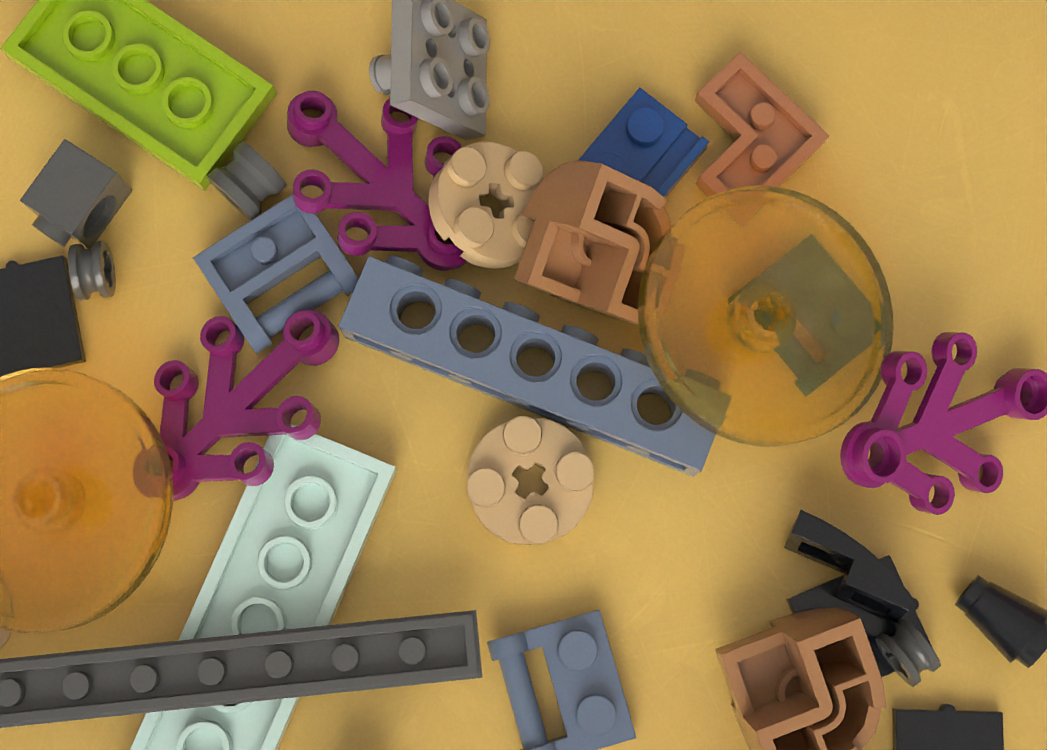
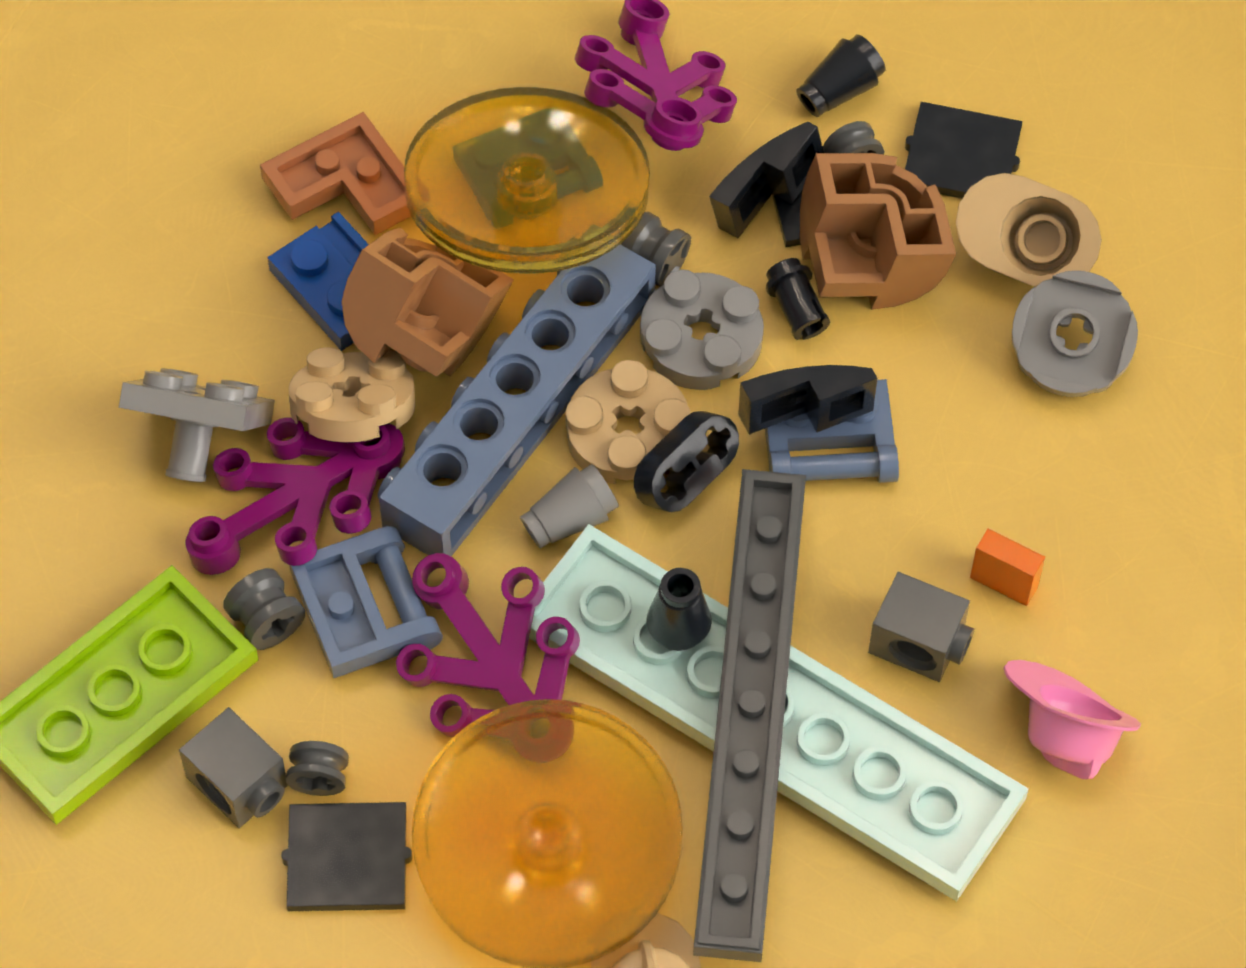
camera: 75 degrees left, 20 degrees down
(309, 584) = (679, 611): none -> black cone
(419, 445) = (570, 506): none -> light grey cone
(490, 549) = (689, 465): none -> black beam
(577, 678) = (823, 392): none -> black slope
(687, 508) = (694, 299): none -> light grey plate
(715, 625) = (792, 287): none -> black pin
(736, 468) = (659, 245): none -> dark grey wheel

